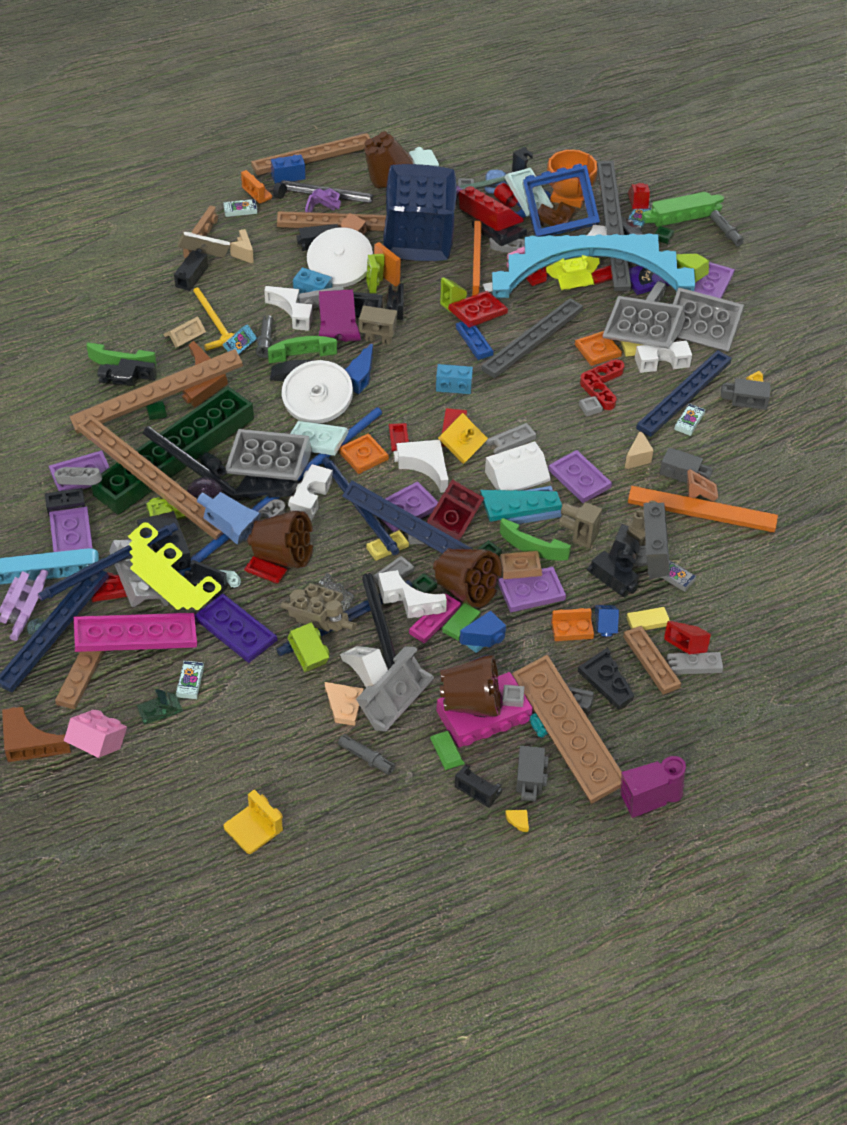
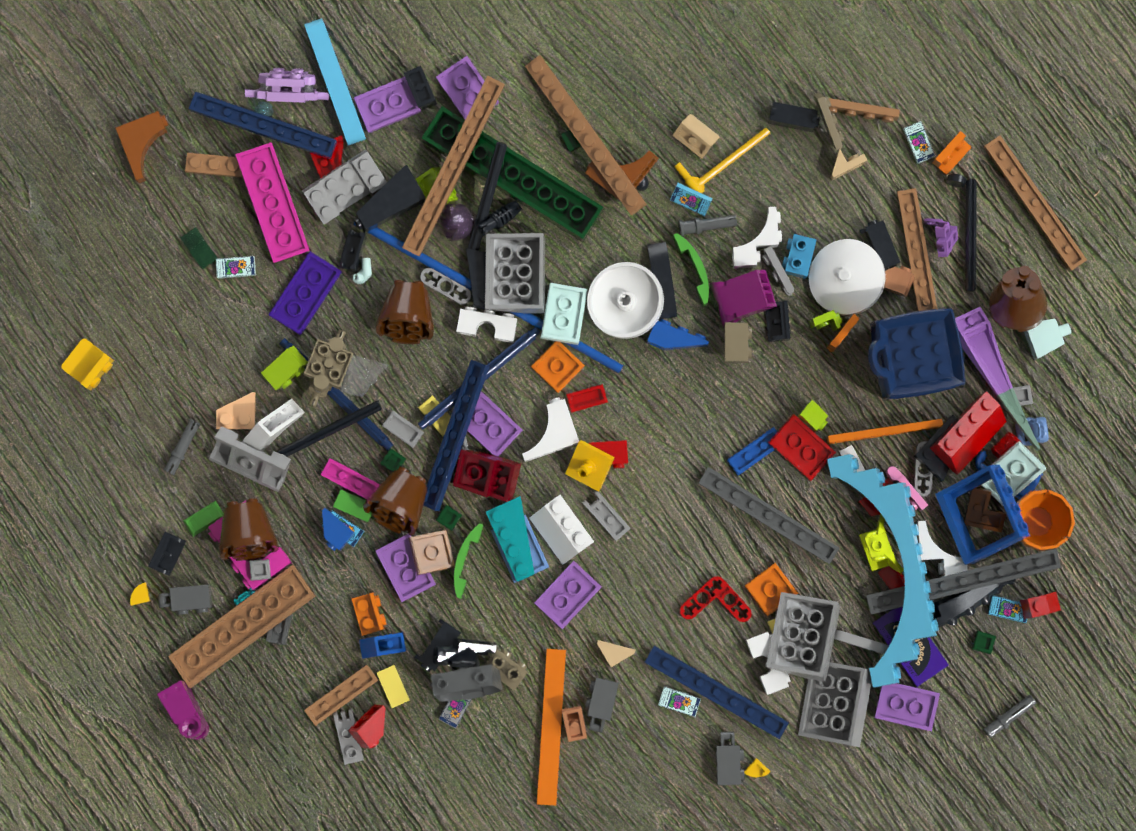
camera: 80 degrees right, 35 degrees up
(78, 476) = (448, 99): light grey beam -> none
(95, 733) = (146, 201): bright pink brick -> none
(100, 565) = (341, 158): dark blue piece -> none
(101, 356) = (638, 102): bright green slope -> none
(126, 372) = (614, 92): black plate -> none
(158, 573) = (334, 206): neon yellow piece -> none
(229, 516) = (420, 254): medium blue piece -> none
(265, 570) = (377, 301): red tile -> none
(288, 168) = (995, 181): blue brick -> none
(395, 300) = (791, 354): black hinge -> none
(415, 602) = (352, 459): white arch -> none
(454, 379) = (679, 440): dark azure brick -> none
(520, 159) = (1058, 456): black hinge -> none
(586, 524) = (493, 608): dark tan brick -> none
(590, 406) = (678, 593): light grey tile -> none
(606, 678) = (310, 654): black wing -> none
(682, 208) = (1028, 659): bright green hinge -> none
(695, 261) = (916, 680): lime slope -> none

